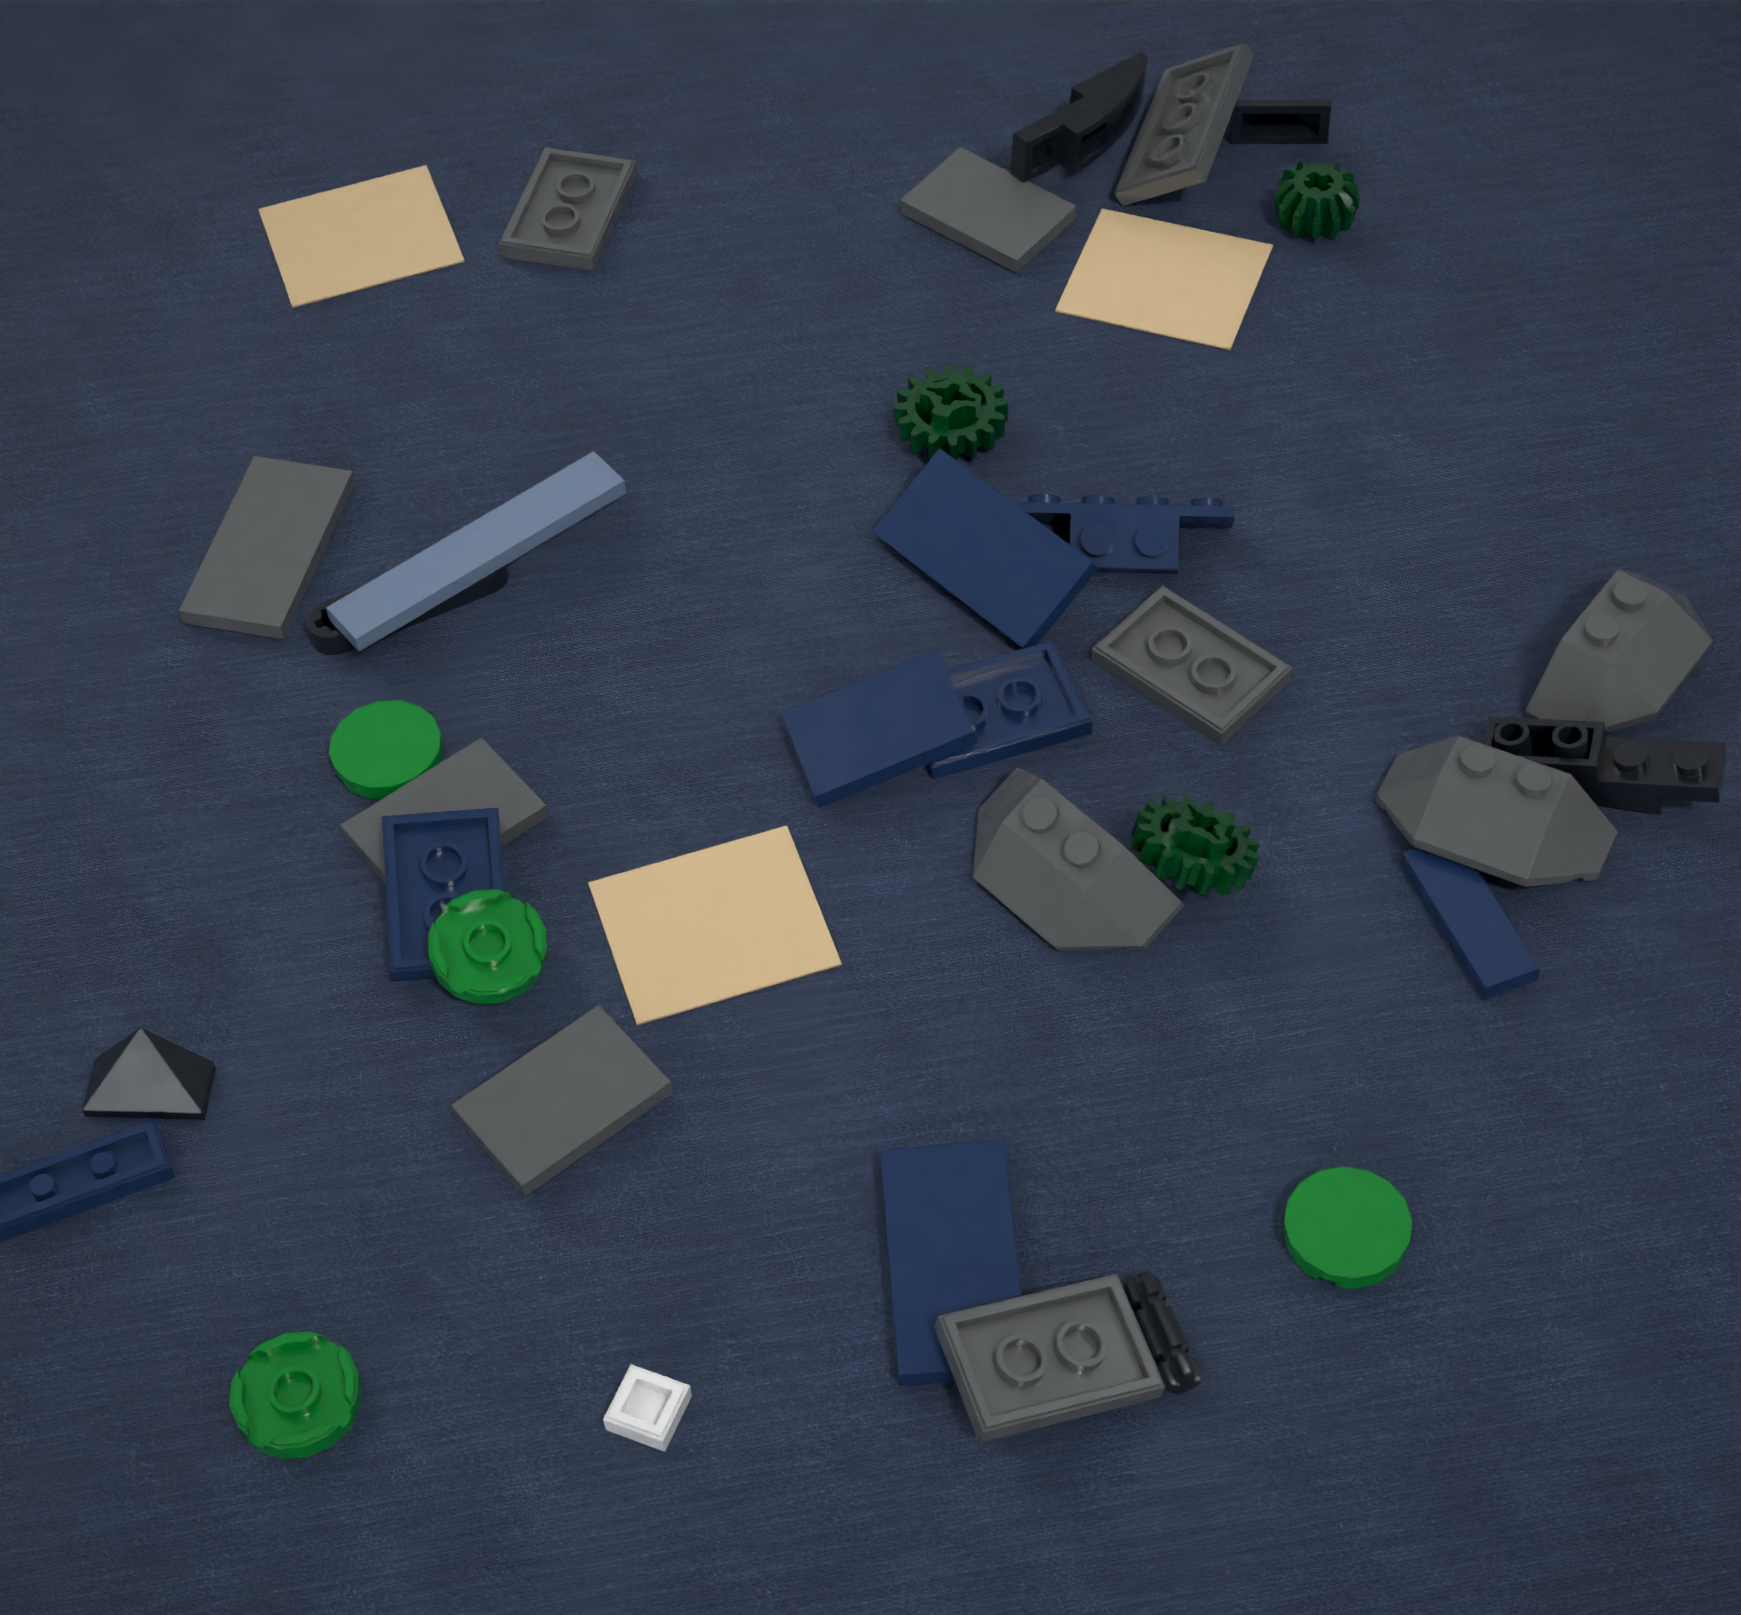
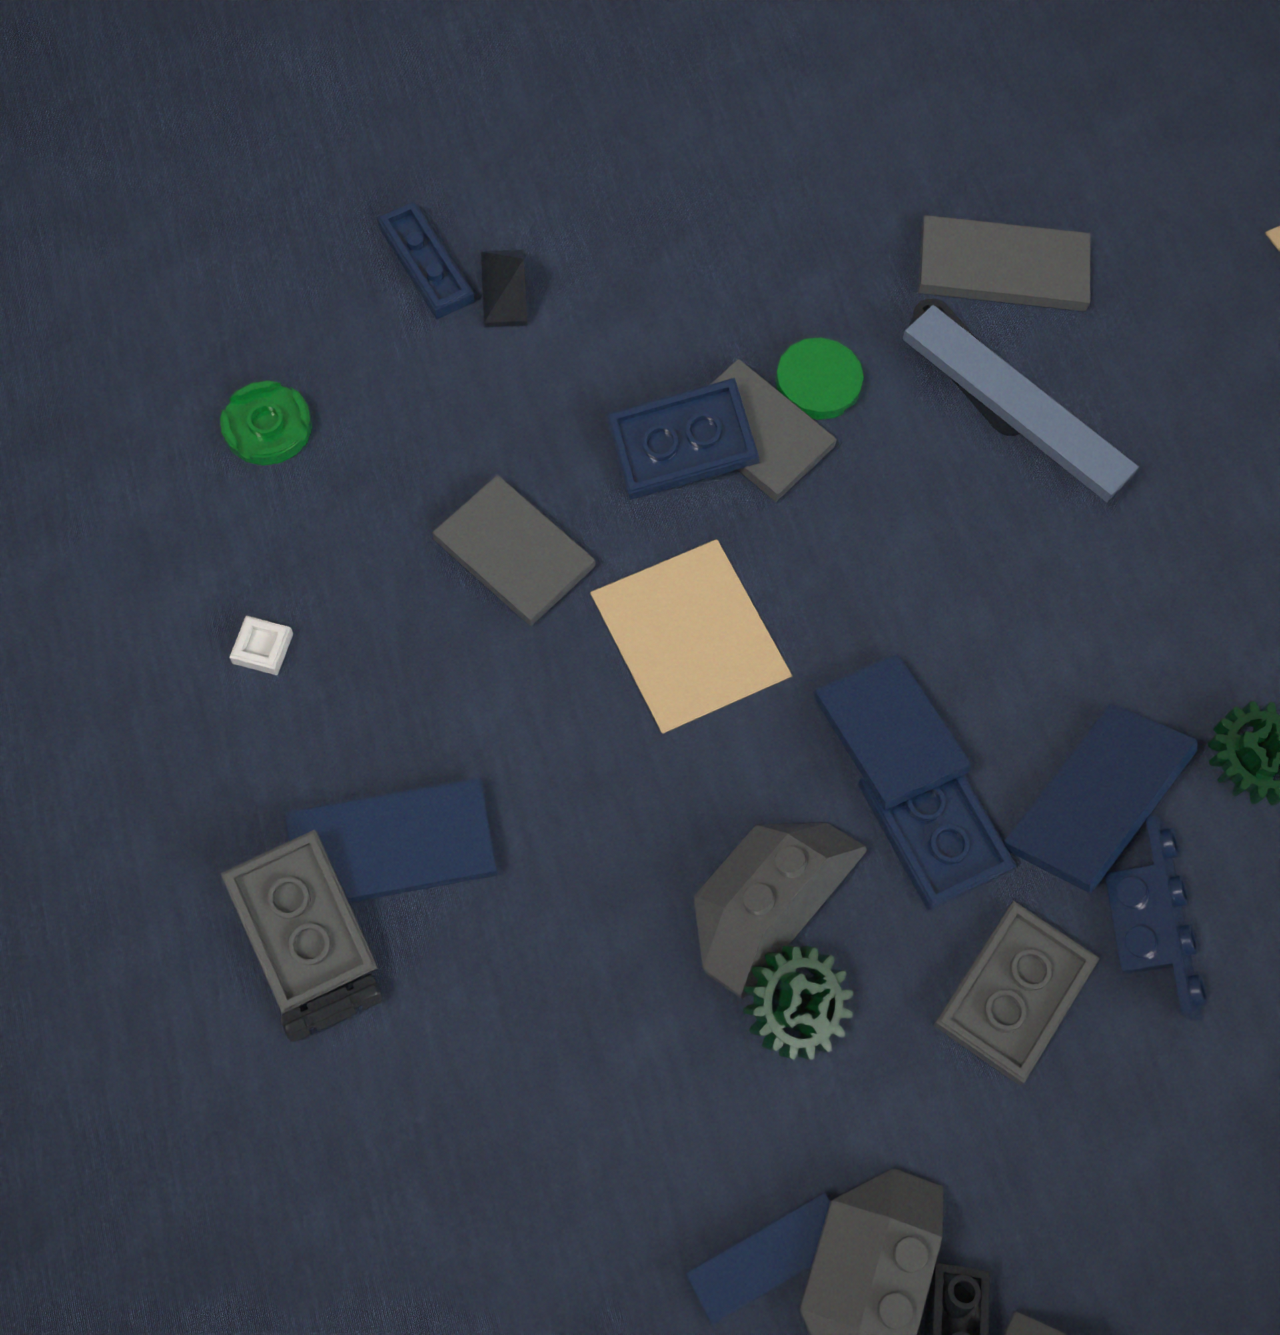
camera: 75 degrees right, 15 degrees up
(487, 947) = (633, 473): green tile -> none
(1347, 1227) = (438, 1156): green tile -> none

